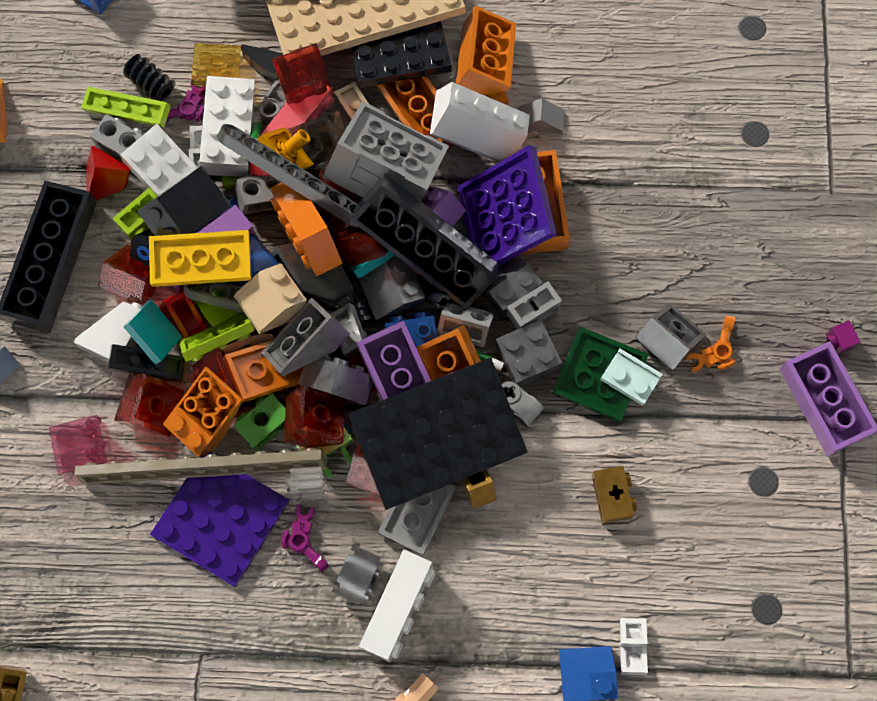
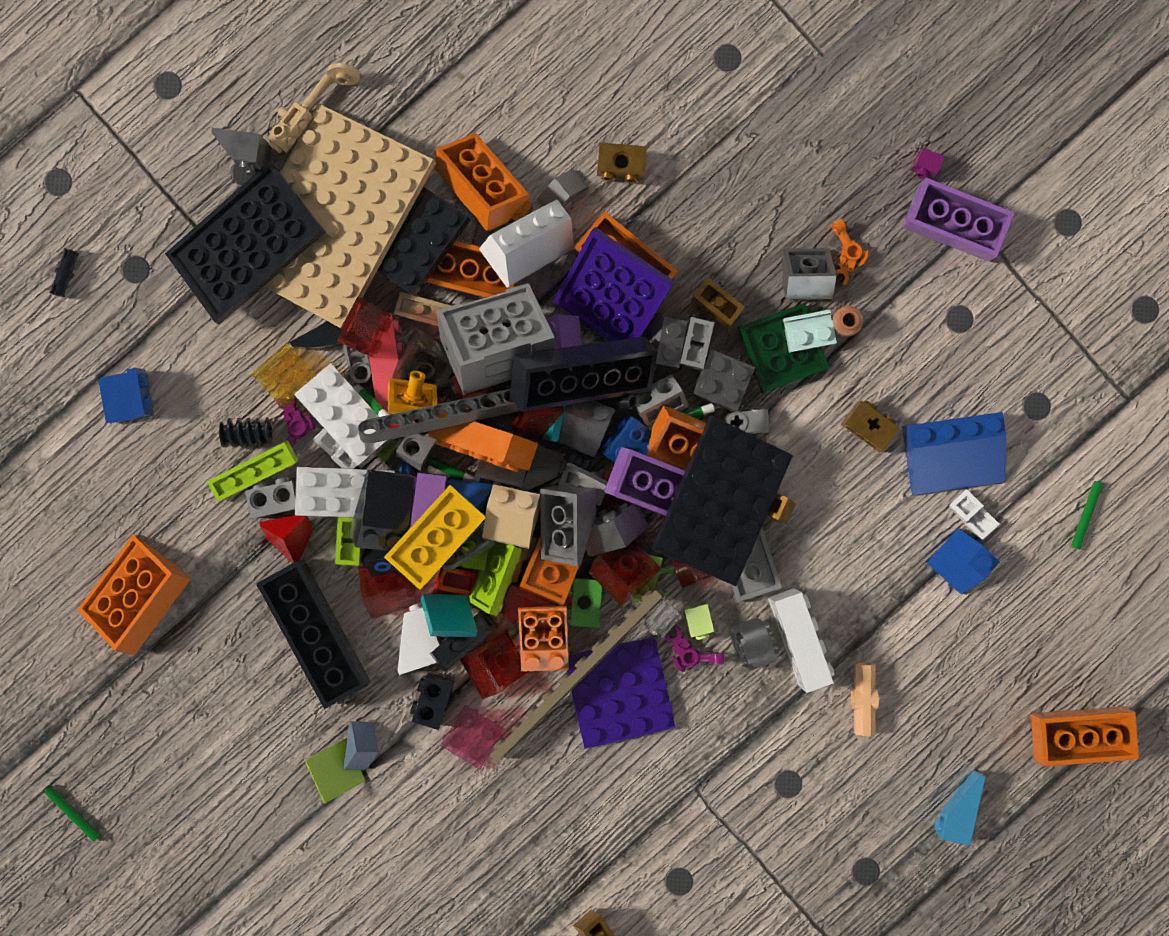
camera: 50 degrees left, 15 degrees up
(80, 394) = (436, 702): none -> black brick
(261, 231) = (446, 468): none -> green bar
(333, 518) = (698, 620): none -> yellowish green brick
(579, 293) = (717, 303): none -> pearl gold brick
(599, 121) = (632, 154): none -> pearl gold brick
(664, 581) = (956, 453): none -> blue slope
(666, 389) = (853, 318): none -> nougat head

